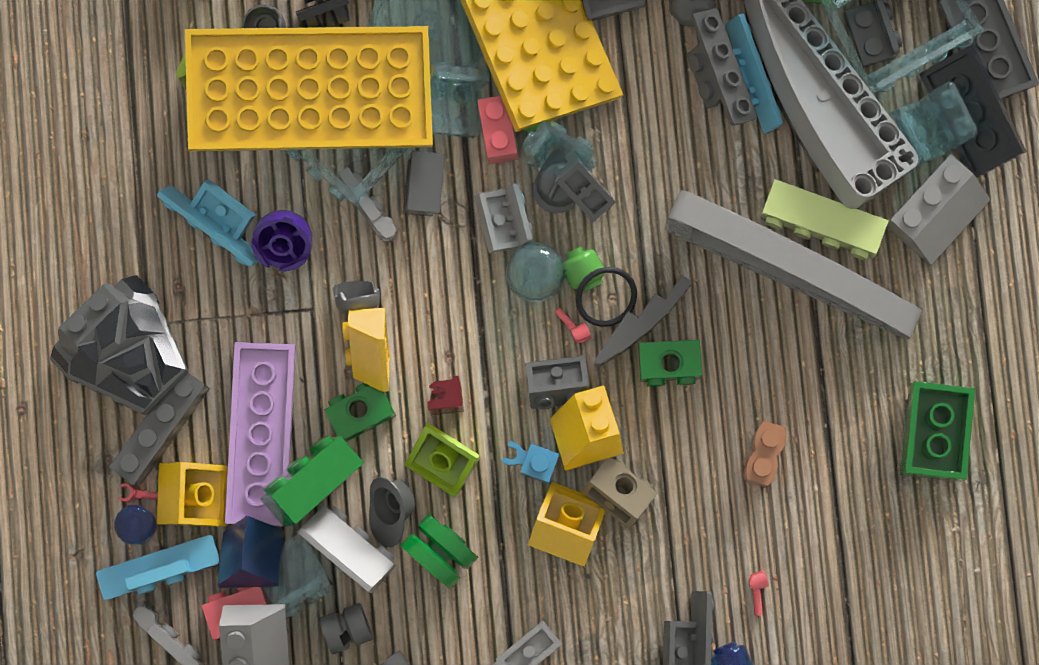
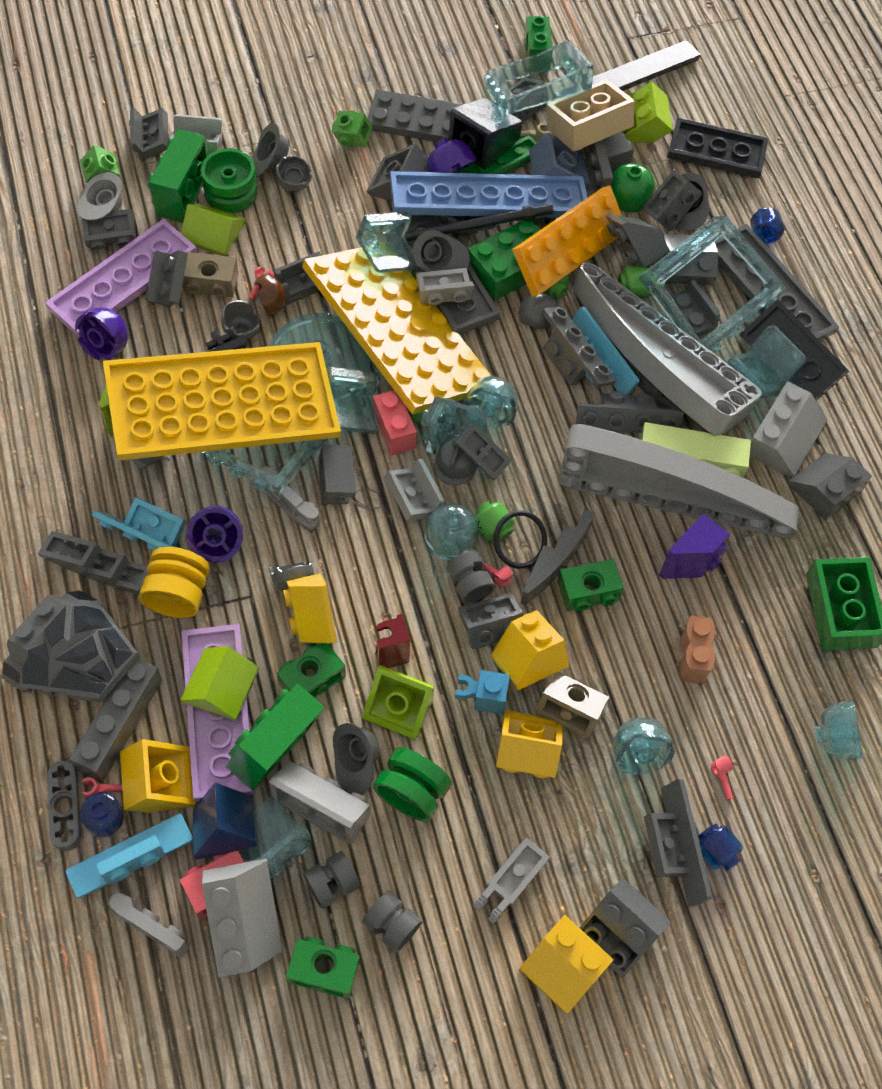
camera: 20 degrees left, 20 degrees down
(89, 513) = (56, 828): none -> dark grey beam
(157, 247) = (93, 562): none -> dark grey slope
(233, 290) = (174, 582): none -> yellow wheel
(266, 408) = (220, 682): none -> lime slope
(544, 332) = (469, 575): none -> dark grey wheel
(610, 122) = (496, 398): none -> clear light blue cylinder
(679, 546) = (642, 745): none -> clear light blue cylinder
(763, 157) = (627, 413): none -> dark grey bracket
(791, 345) = (696, 551): none -> dark purple slope
(889, 570) = (840, 731): none -> clear light blue cylinder
(966, 281) = (830, 483): none -> dark grey slope

